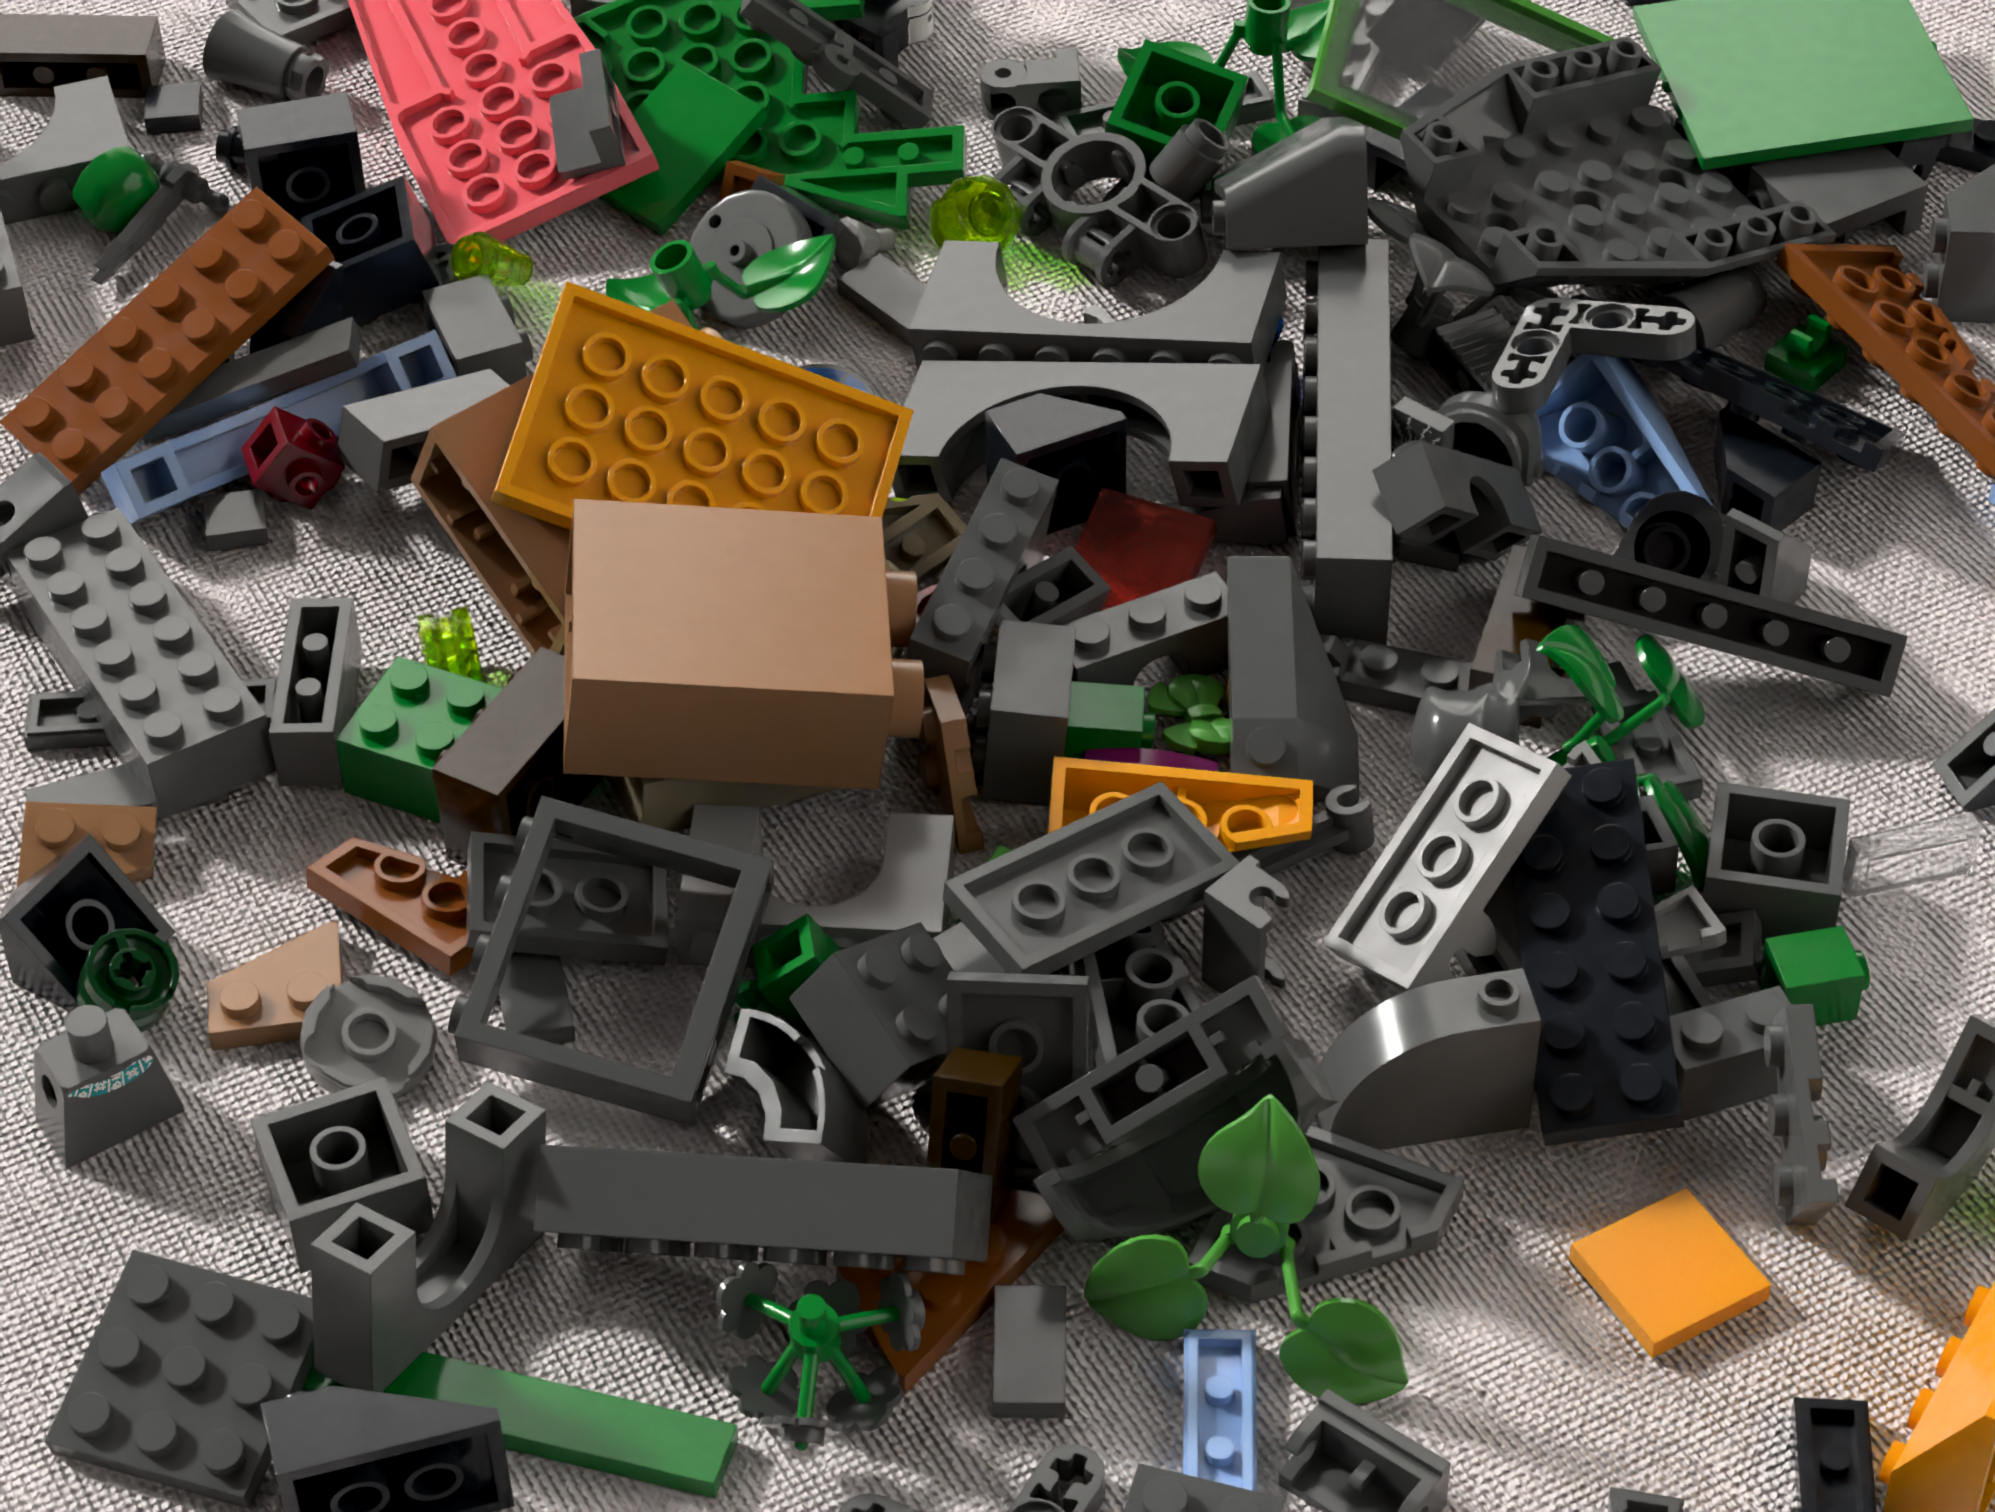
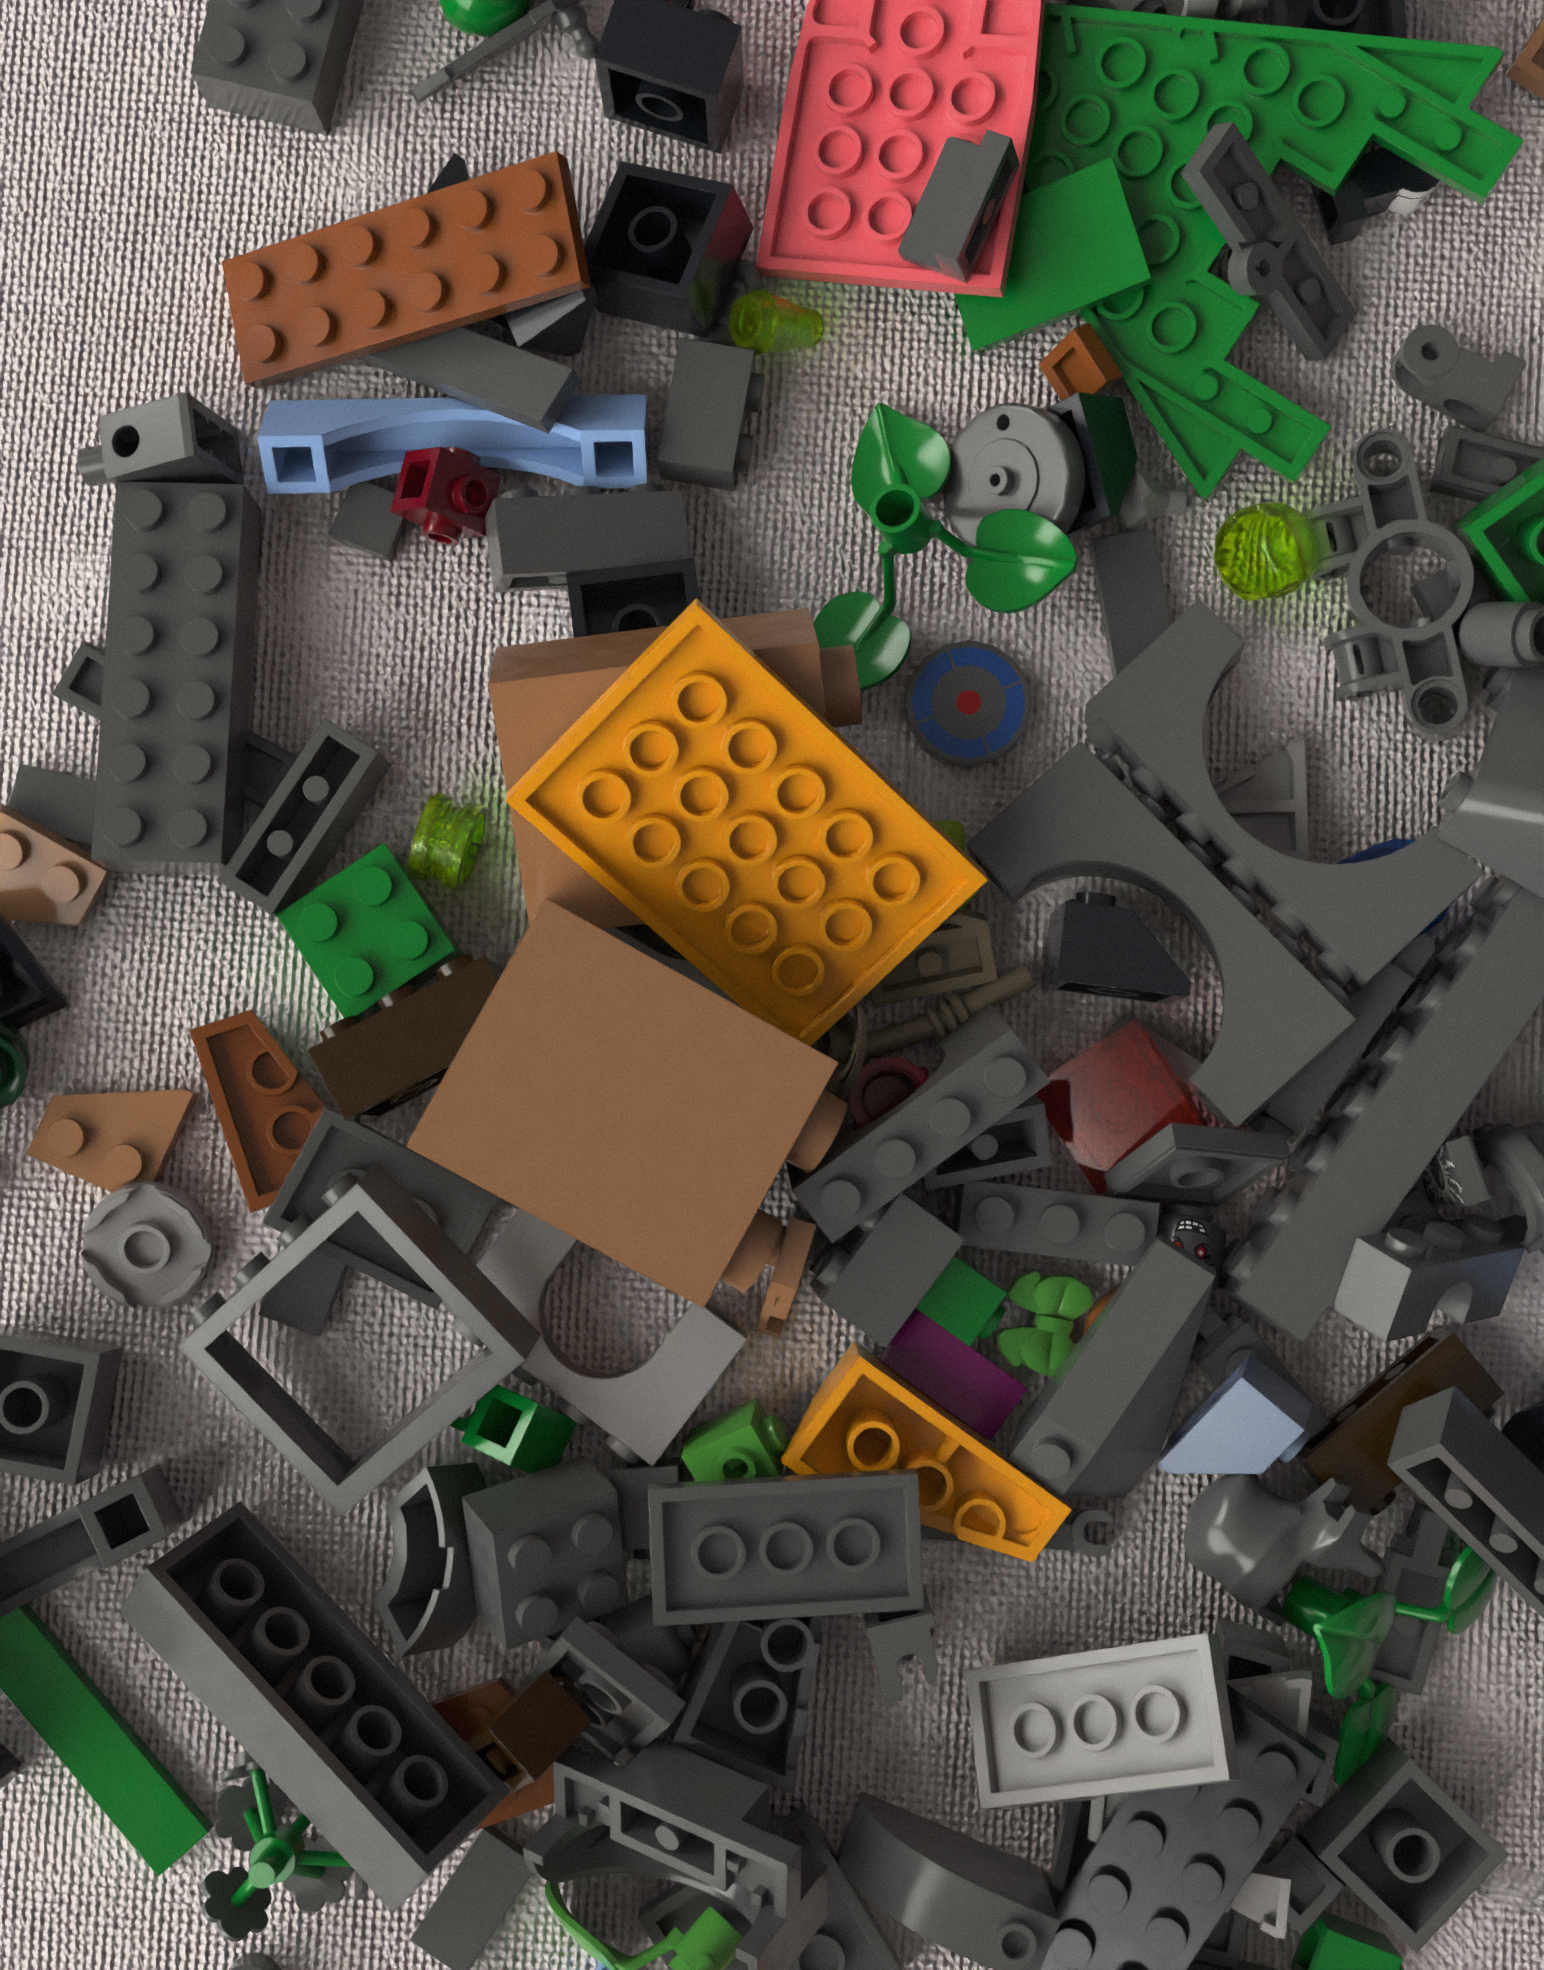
camera: 35 degrees right, 40 degrees up
(1219, 518) = (1196, 1164): none -> dark grey tile
(1400, 662) = (1240, 1425): none -> sand blue slope

